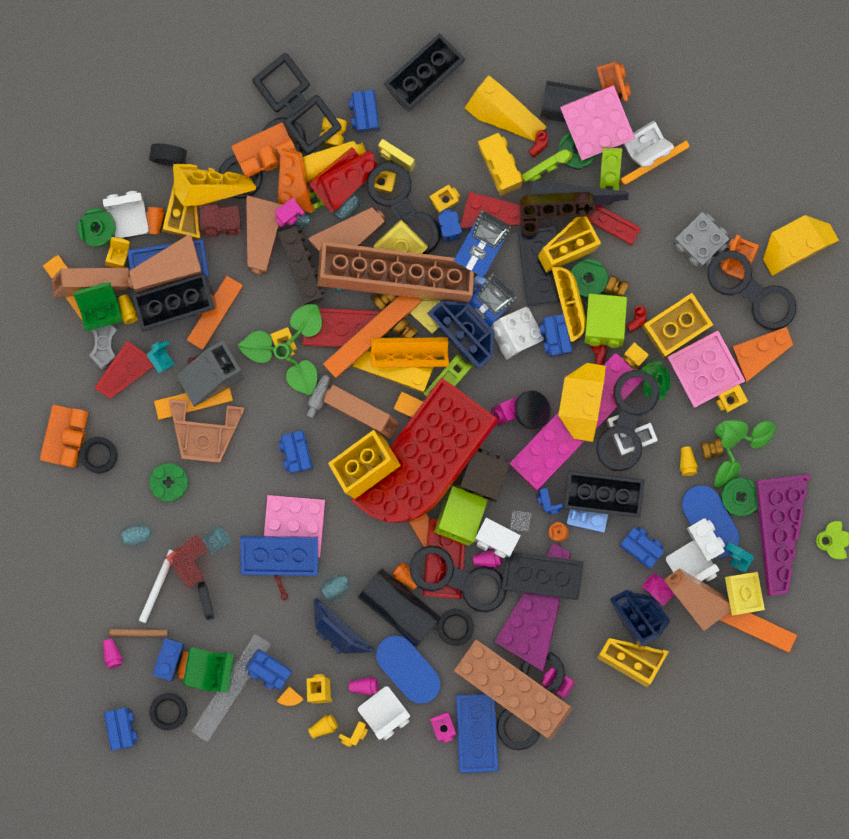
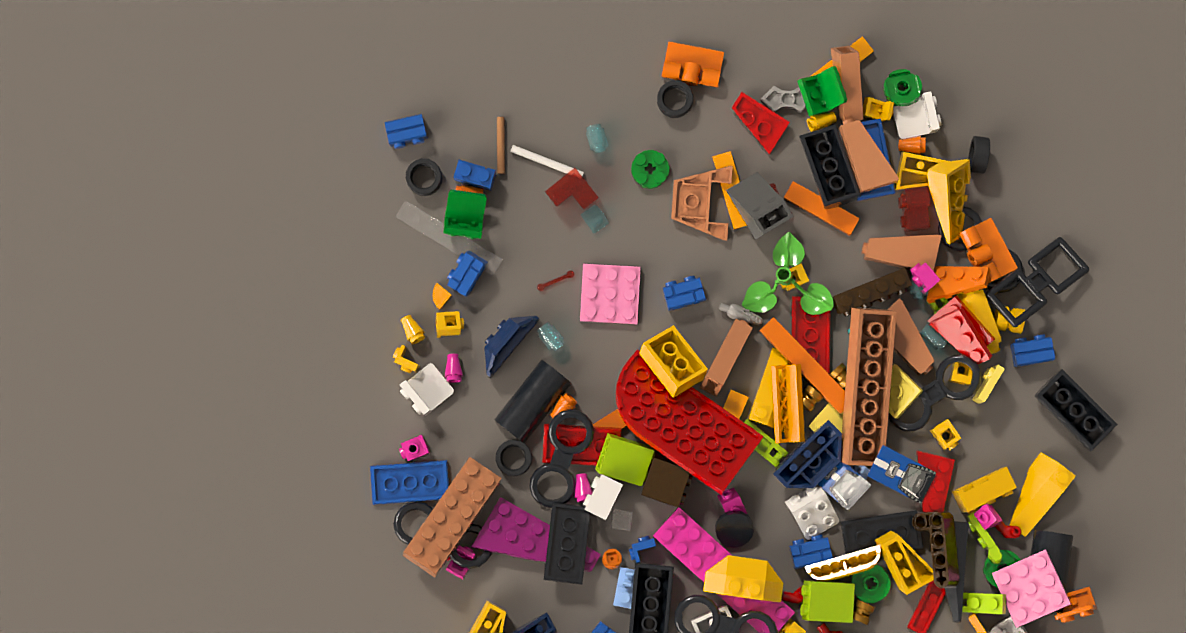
camera: 90 degrees right, 0 degrees up
(112, 656) = (478, 119): dark pink cone -> none
(159, 357) = (774, 155): teal bracket -> none
(205, 599) = (533, 209): black tile -> none
(279, 555) = (580, 280): blue tile -> none
(408, 669) = (471, 412): blue tile -> none
(449, 226) = (918, 440): blue brick -> none
(526, 161) = (988, 516): none -> dark pink bracket

